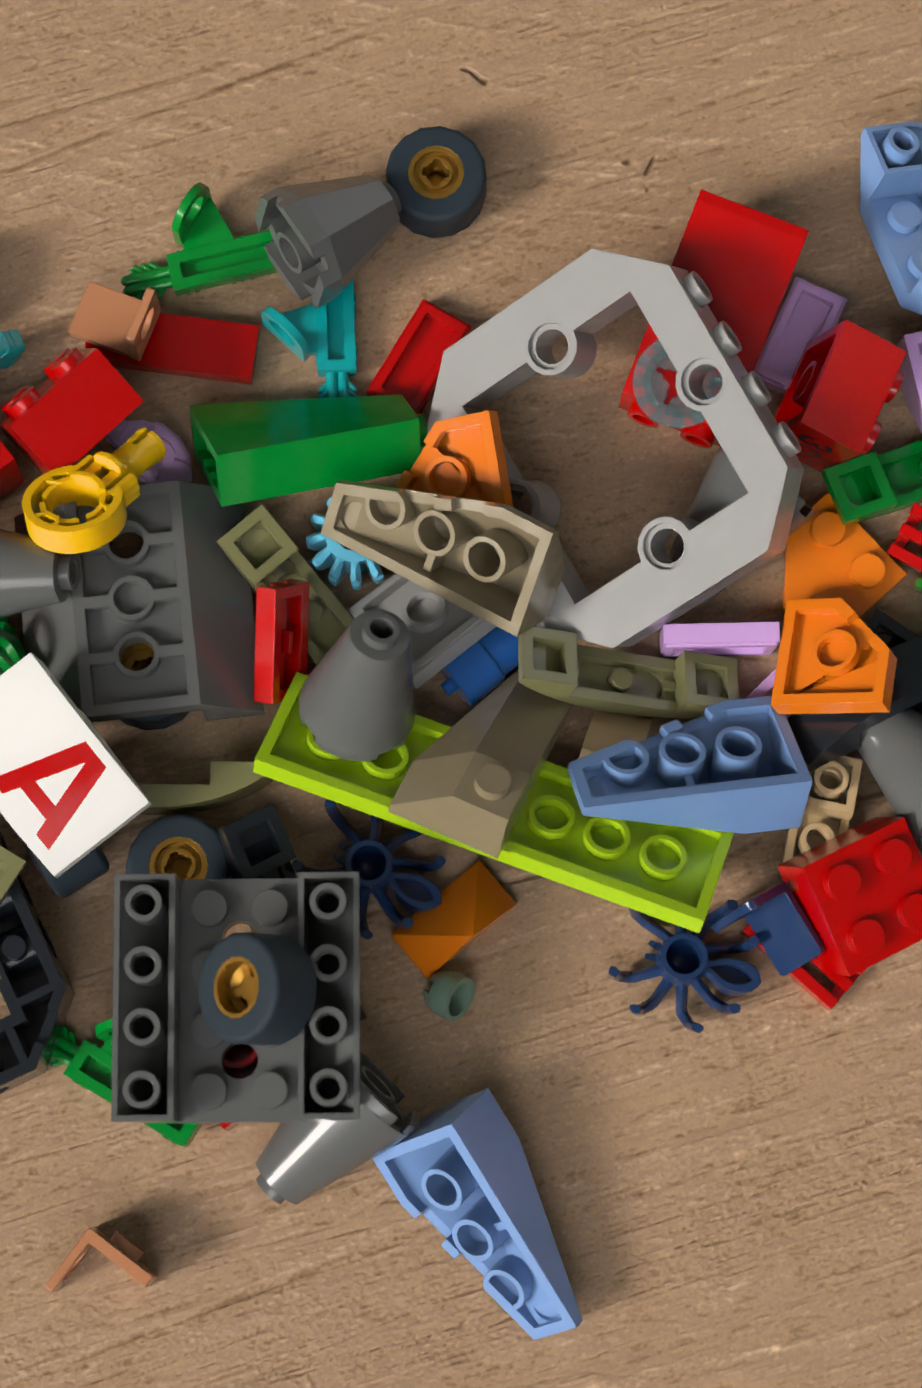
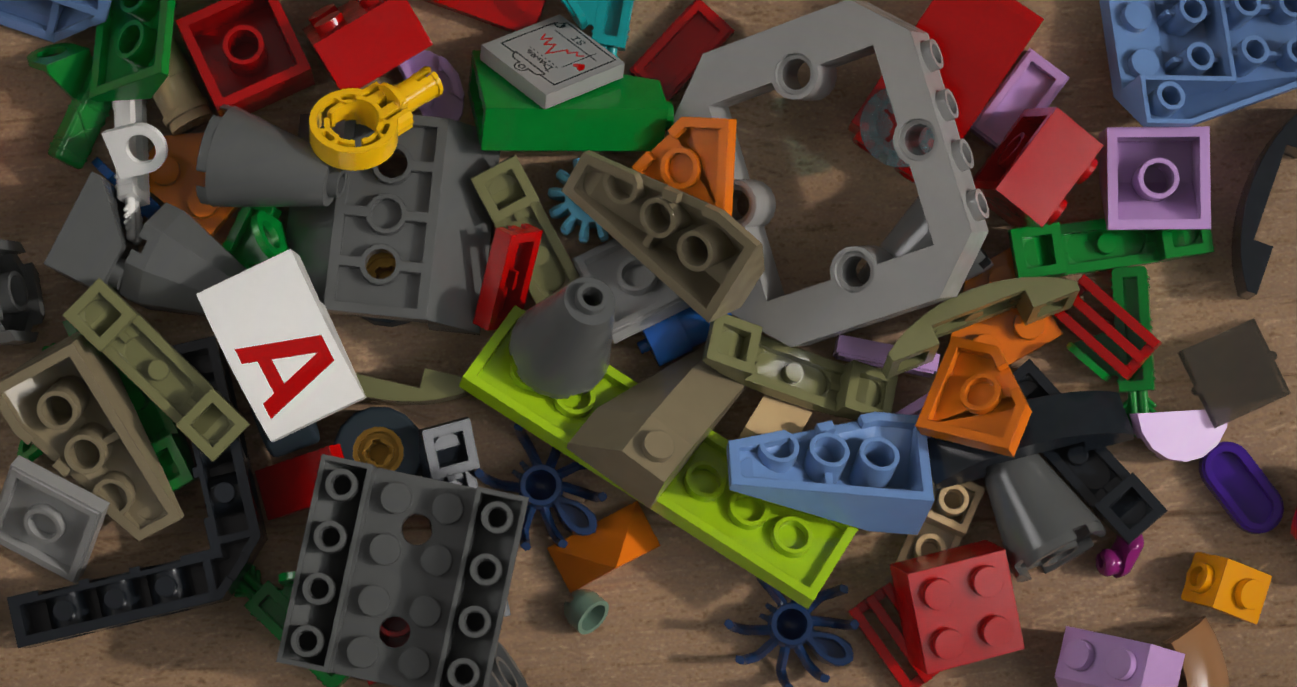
camera: 10 degrees right, 5 degrees up
(87, 924) = (291, 483): none -> red tile
(257, 989) = (421, 578): black wheel -> none
(279, 396) = (552, 61): none -> light grey tile
(779, 927) = (879, 618): dark blue bracket -> none
(863, 536) = (1031, 296): none -> olive slope

